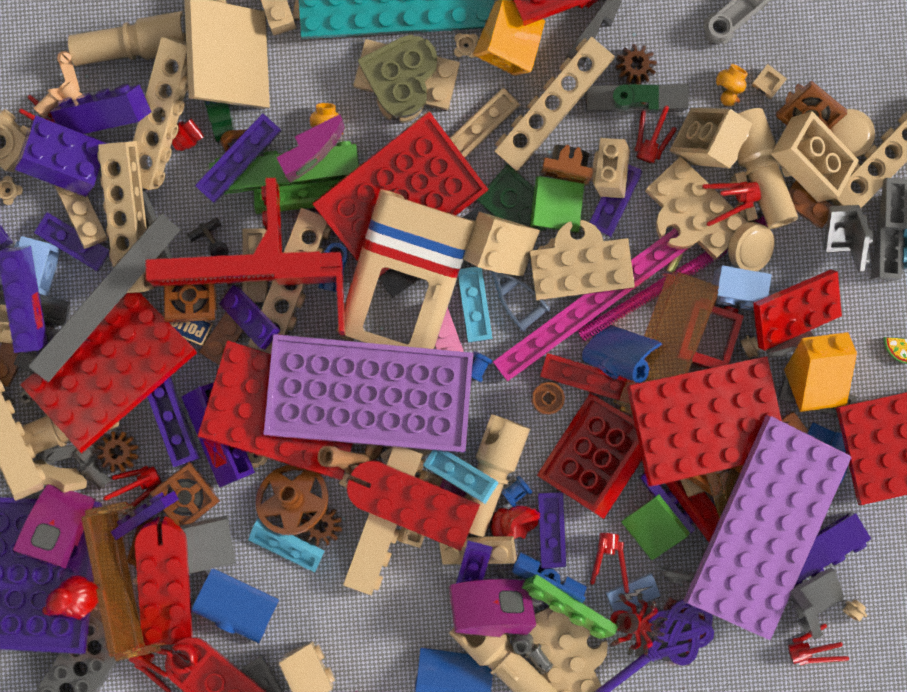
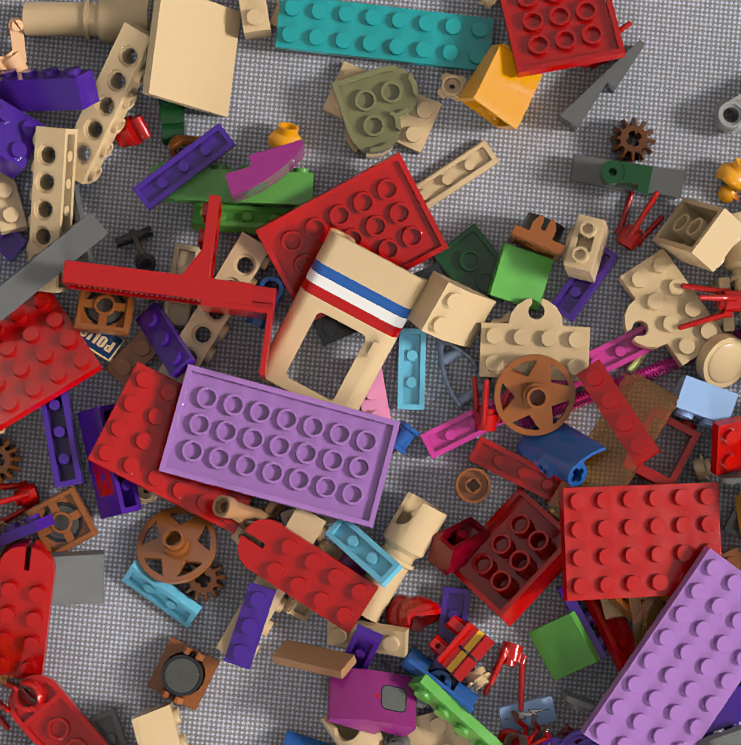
camera: 15 degrees right, 0 degrees up
(235, 606) = (95, 649): blue panel -> none
(318, 615) = (182, 674): none -> piece
(370, 559) = (249, 625): none -> dark purple plate
(433, 579) = (314, 659): none -> medium nougat tile
(516, 491) = (420, 579): blue bush -> none
(543, 454) = (456, 545): none -> dark red slope
(549, 334) = (485, 415): none -> red plant
(551, 118) = (476, 205): tan brick -> none
(558, 555) = (450, 653): none -> red hips
(583, 570) = (477, 678): none -> tan plate
(589, 307) = (534, 394): none -> dark orange wheel
(667, 310) = (618, 413): none -> red plate

